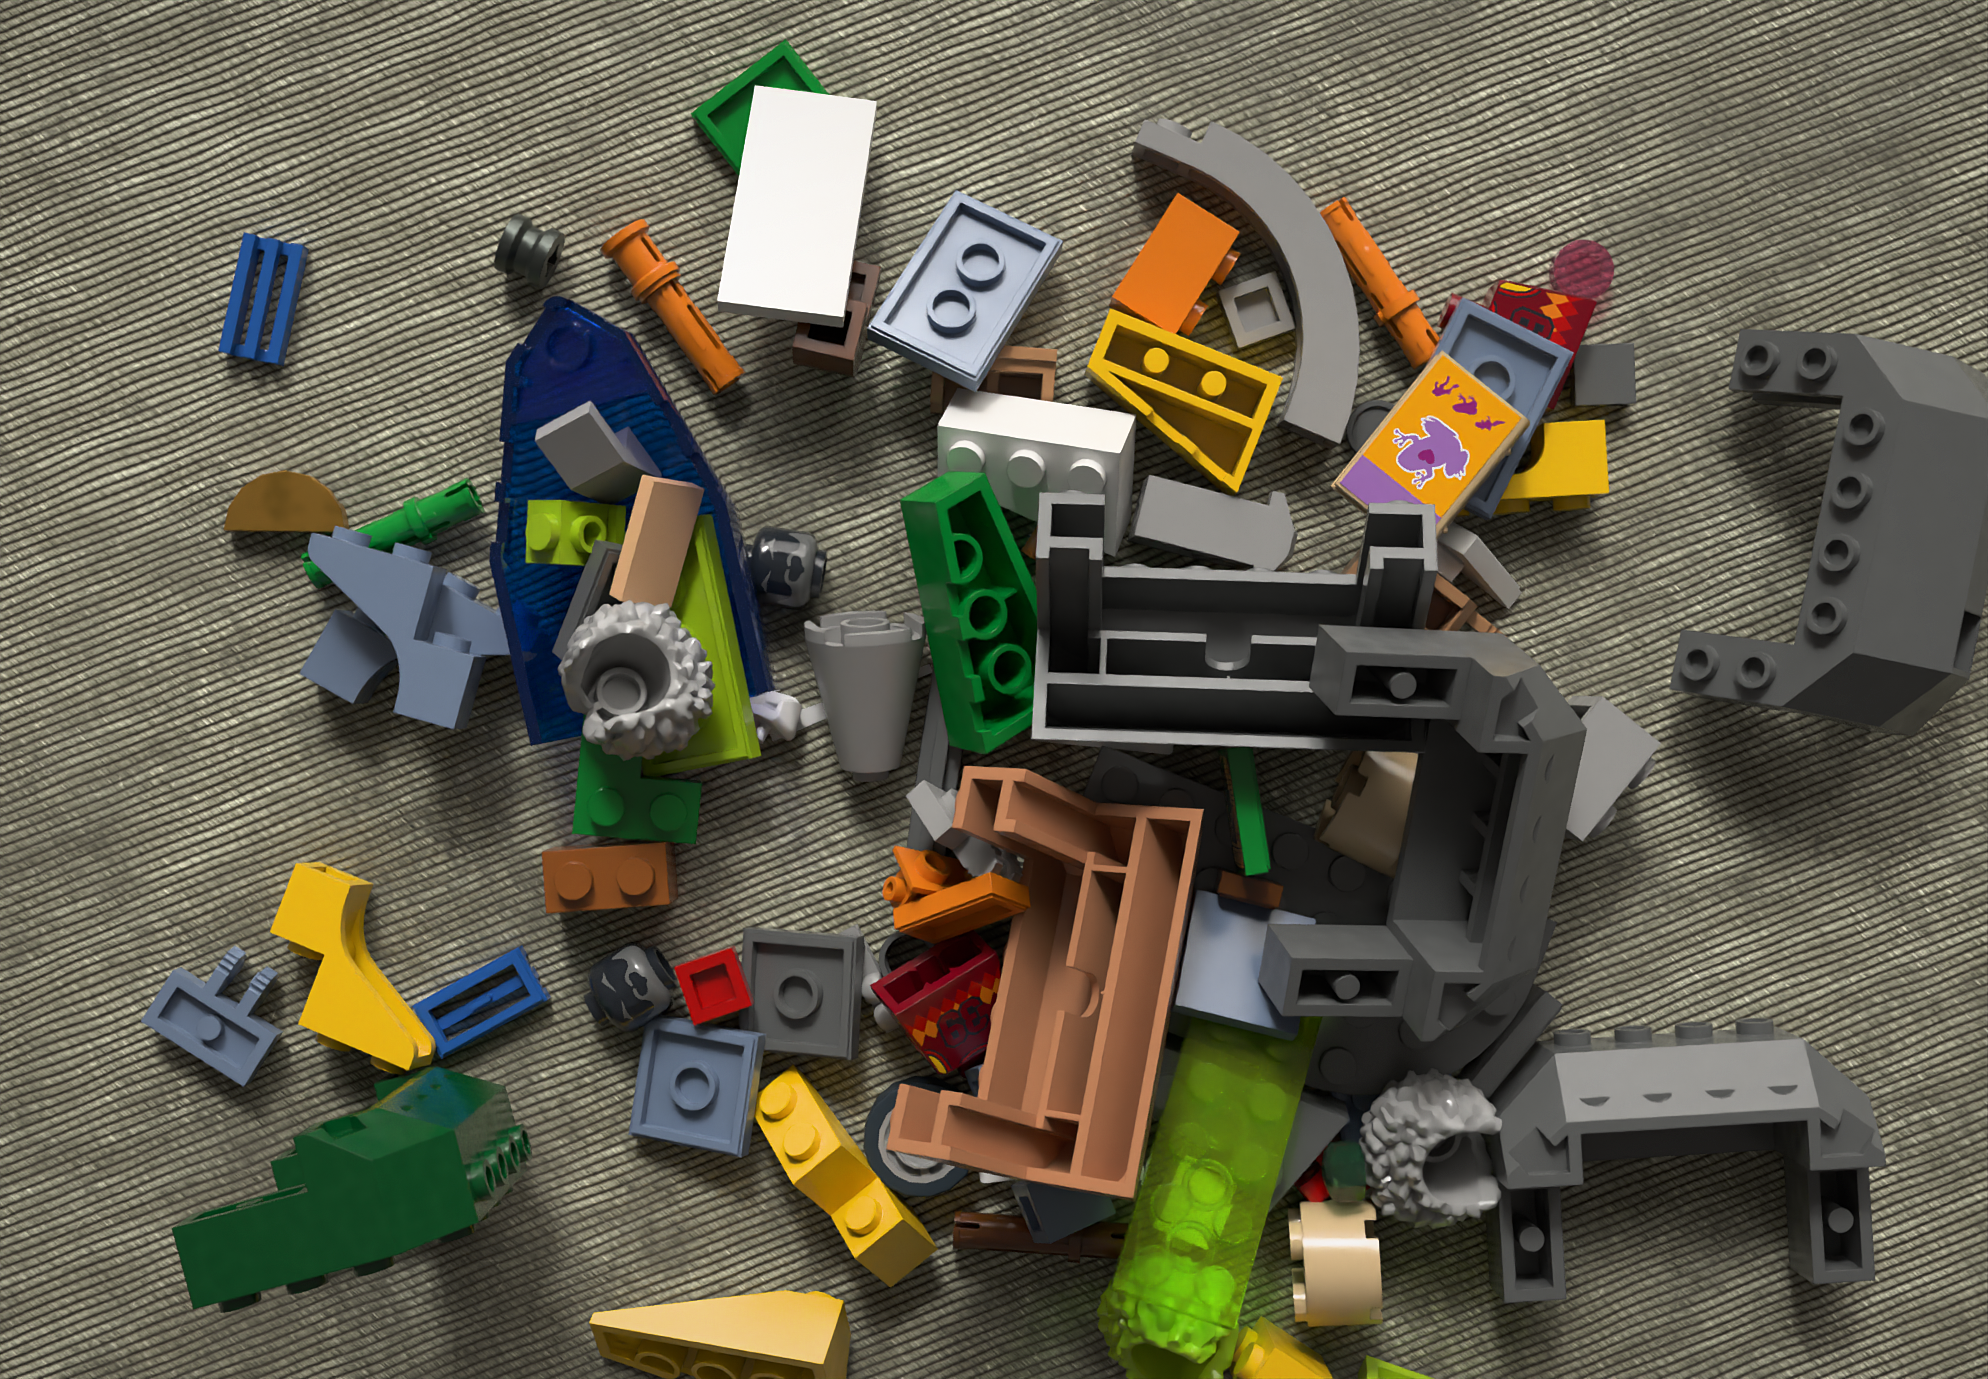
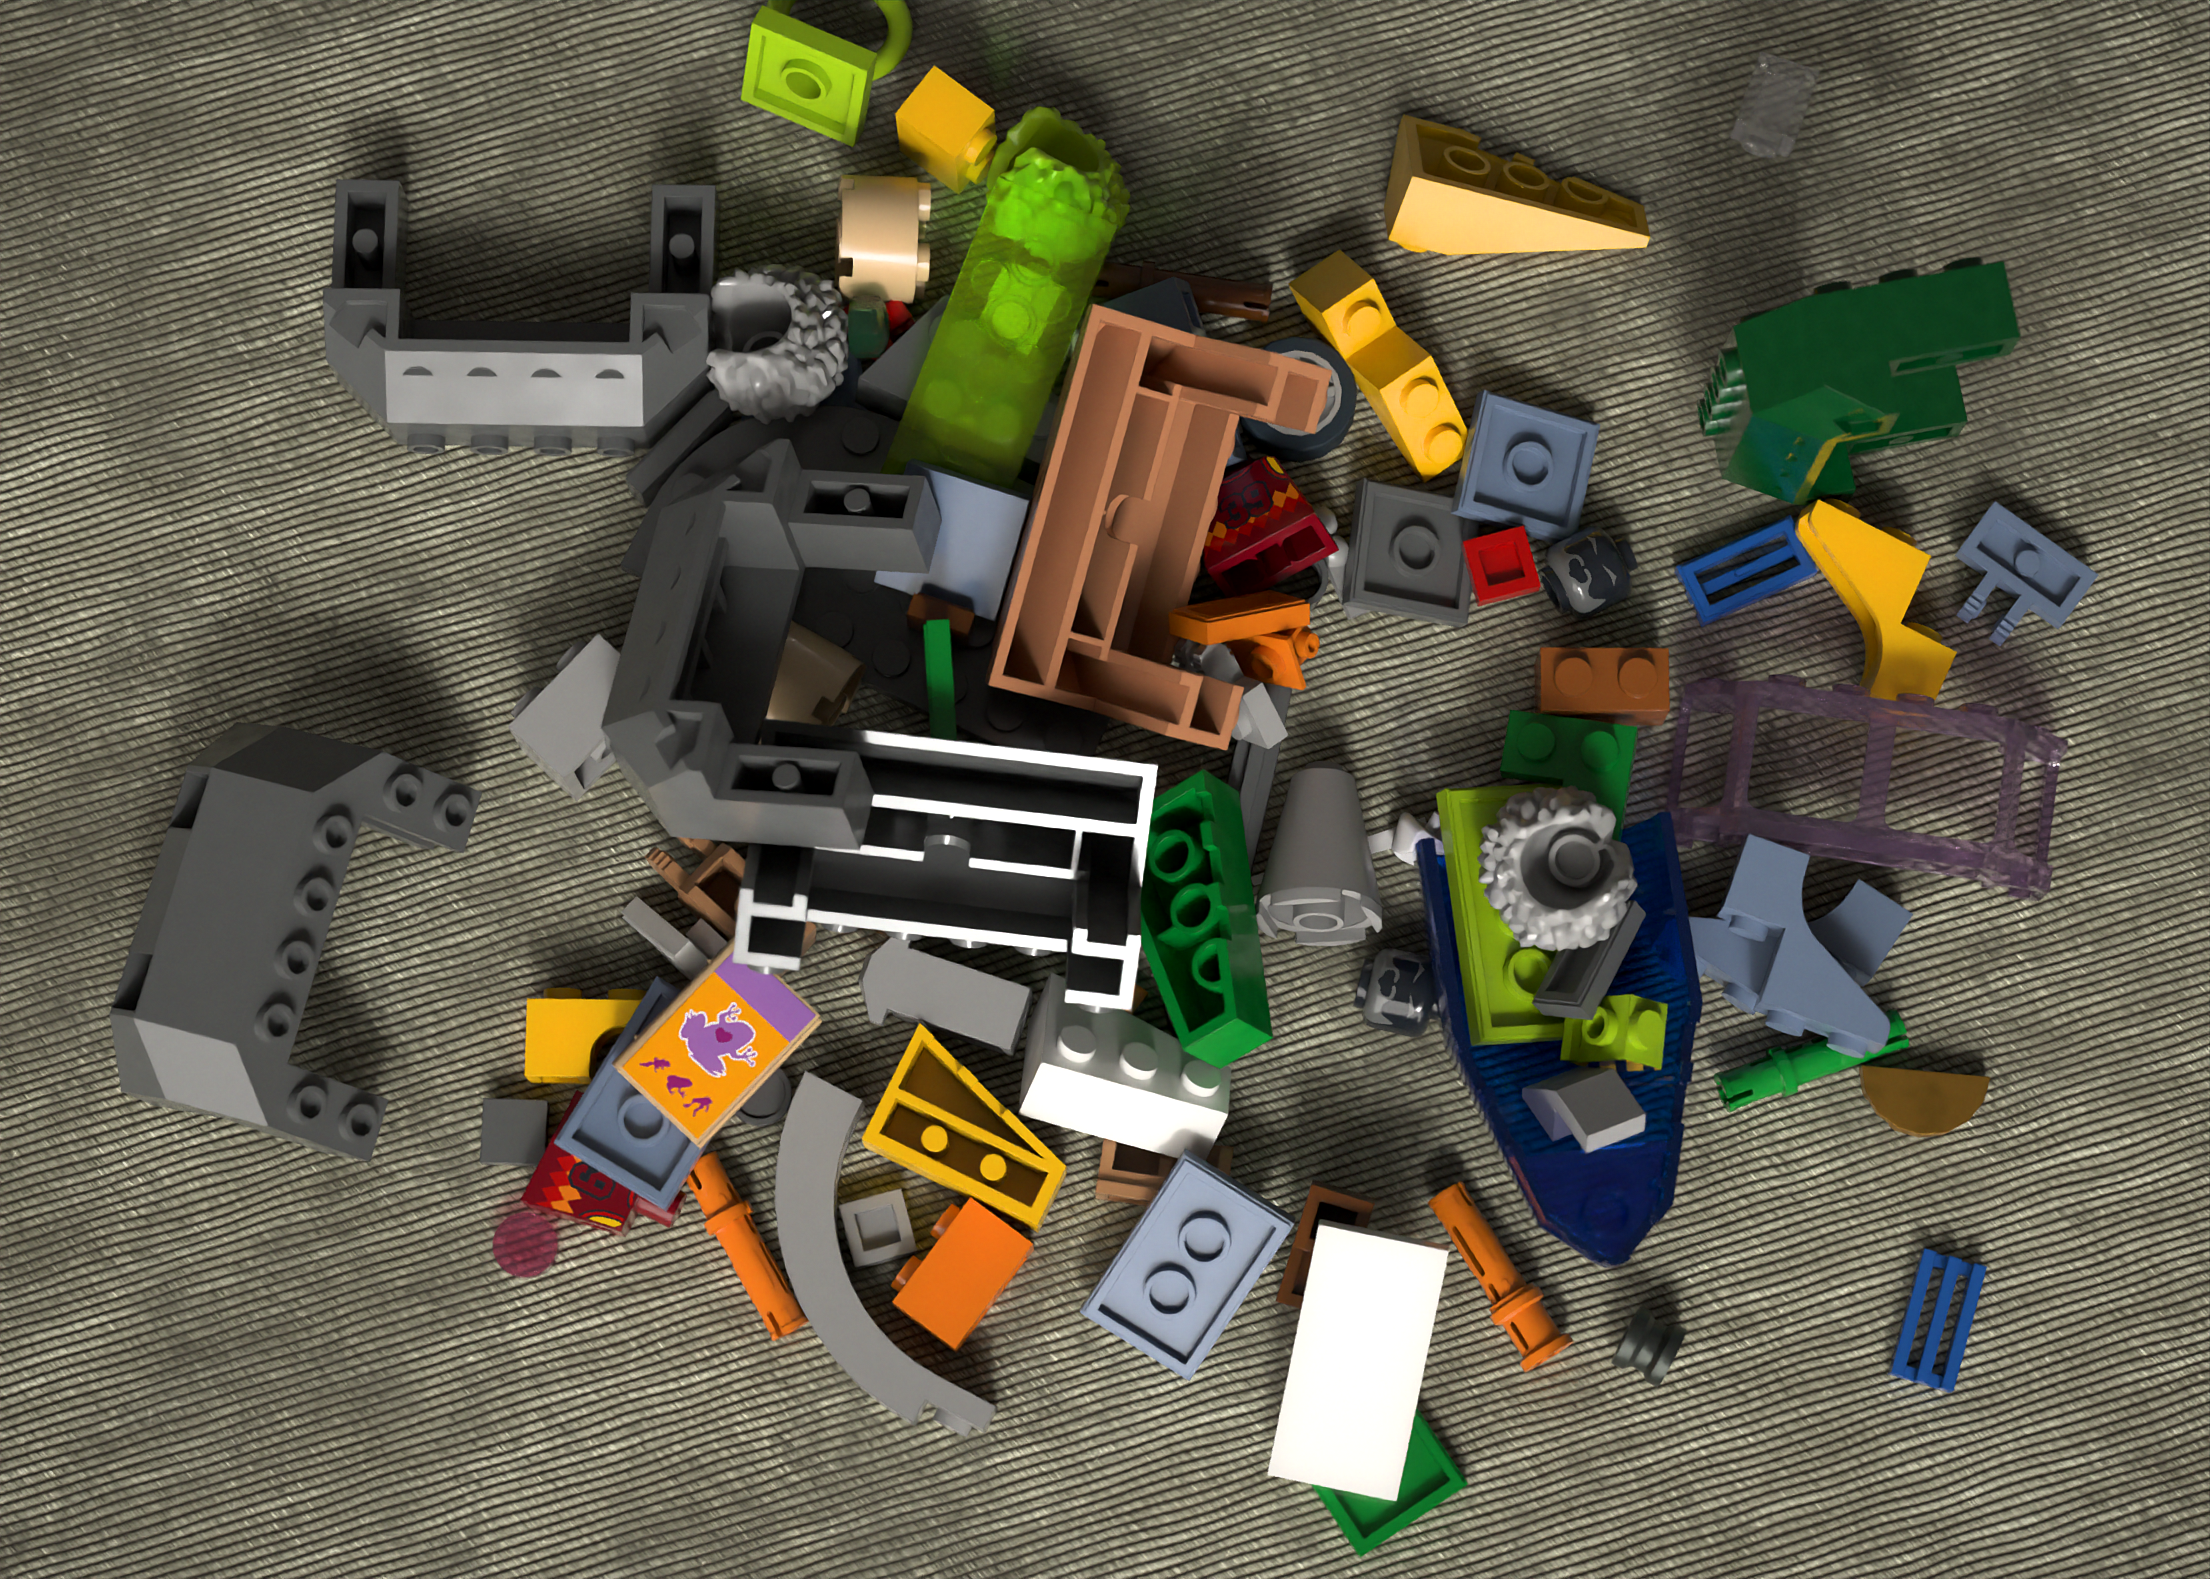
camera: 175 degrees left, 10 degrees down
(338, 742) = (1868, 836): none -> clear purple windscreen
(656, 541) = (1528, 1013): light nougat tile -> none

